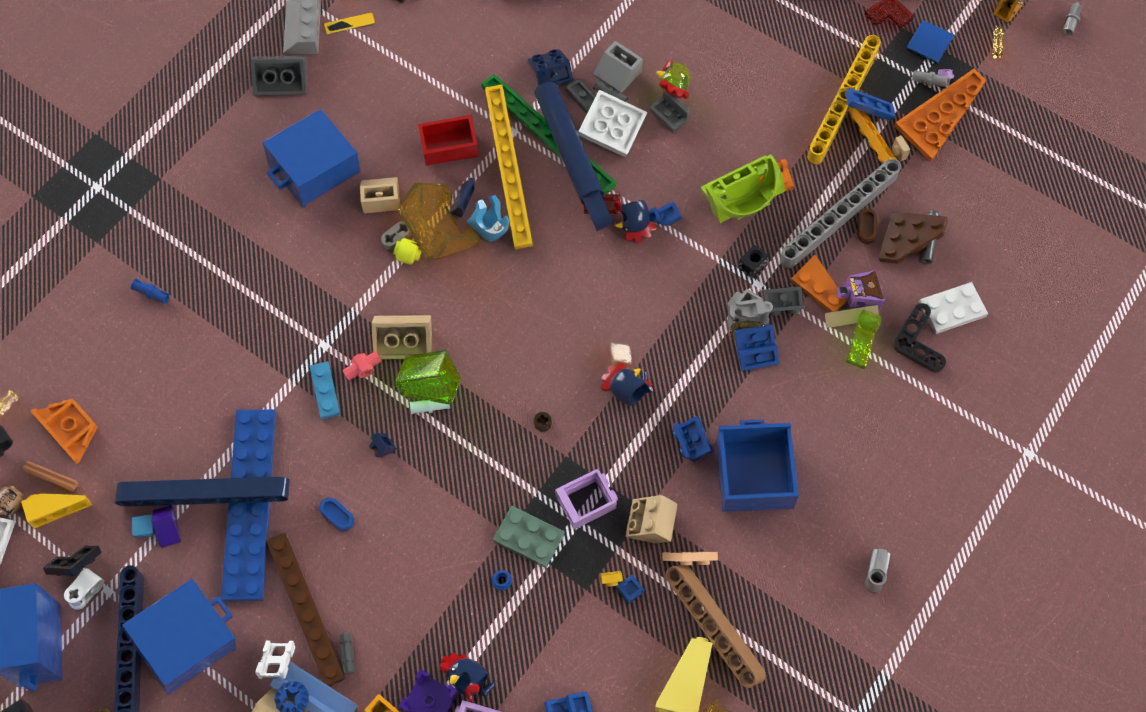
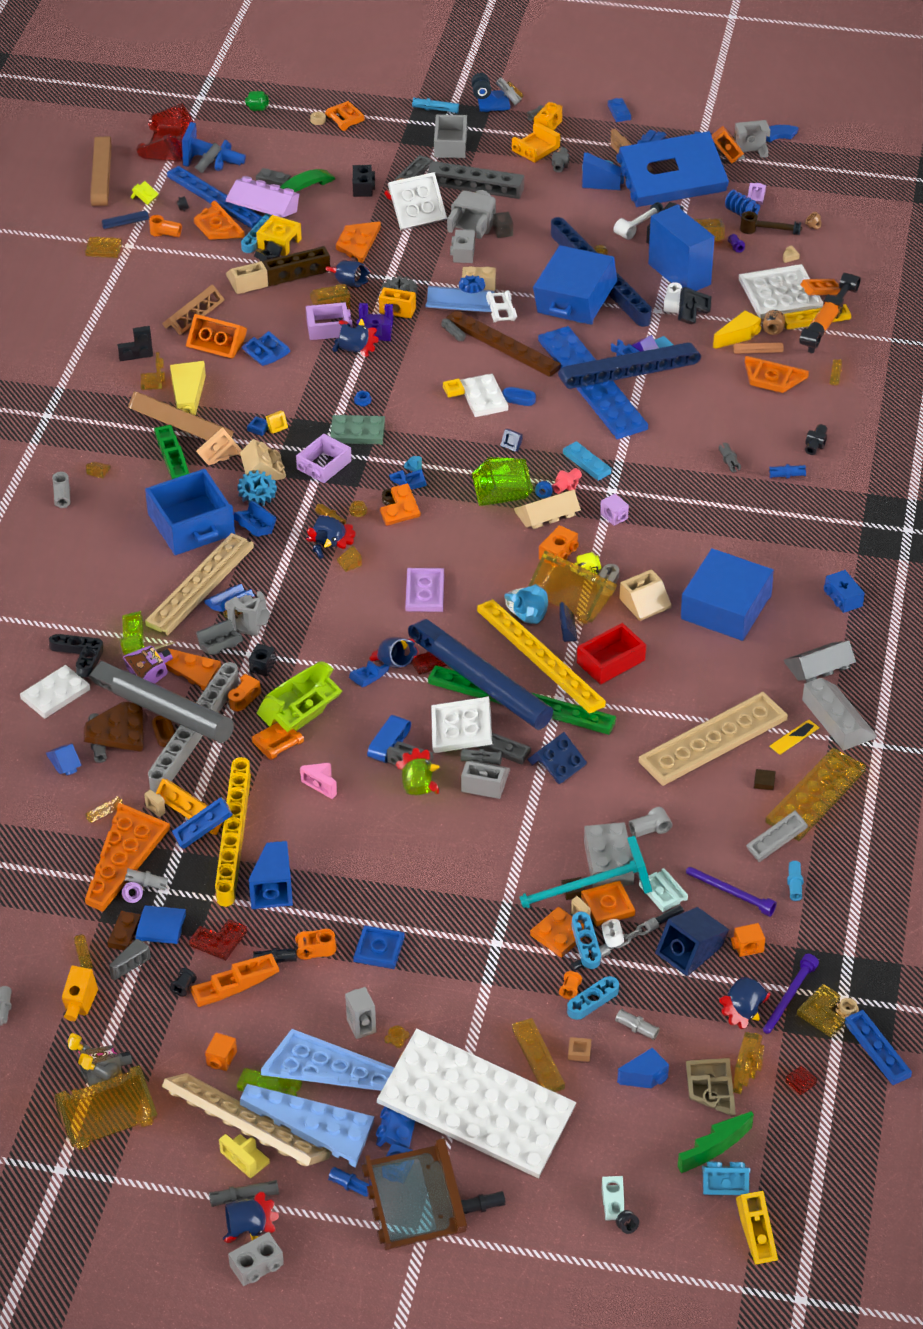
camera: 155 degrees right, 20 degrees down
(94, 319) = (816, 439): none -> black axle
(187, 526) = (621, 349): none -> blue plate
(190, 331) = (729, 457): none -> dark grey pin
(207, 133) = (844, 591): none -> blue brick
(341, 308) = (614, 509): none -> lavender brick
(371, 532) = (484, 395): none -> white plate
(390, 363) = (546, 486): none -> blue plate
(398, 552) = (453, 388): none -> yellow plate
(415, 38) = (712, 738): none -> tan plate
(417, 293) = (560, 542): none -> orange brick
(496, 451) = (413, 463): none -> dark azure tile
(510, 438) = (414, 479): none -> blue slope
(538, 395) = (404, 507): none -> orange plate
(566, 291) = (425, 589): none -> lavender tile
(582, 412) = (358, 508): none -> clear yellow plate
(613, 418) = (321, 509): none -> pearl gold axle
(672, 481) = (257, 487): none -> dark azure gear
(678, 137) = (392, 731): none -> blue beam
(740, 582) = (171, 451): none -> green slope
(754, 120) = (319, 778): none -> bright pink slope
(776, 380) = (199, 584): none -> tan plate
(782, 232) = (244, 693): none -> orange leg
(827, 594) = (97, 469): none -> clear yellow slope
(832, 34) = (271, 878): none -> blue slope
(868, 232) = (163, 702): none -> dark grey piece
(944, 163) = (103, 810): none -> clear yellow axle
(959, 50) = (124, 930): none -> reddish brown plate
(962, 19) = (129, 959): none -> dark grey slope
(967, 224) = (64, 759): none -> blue slope

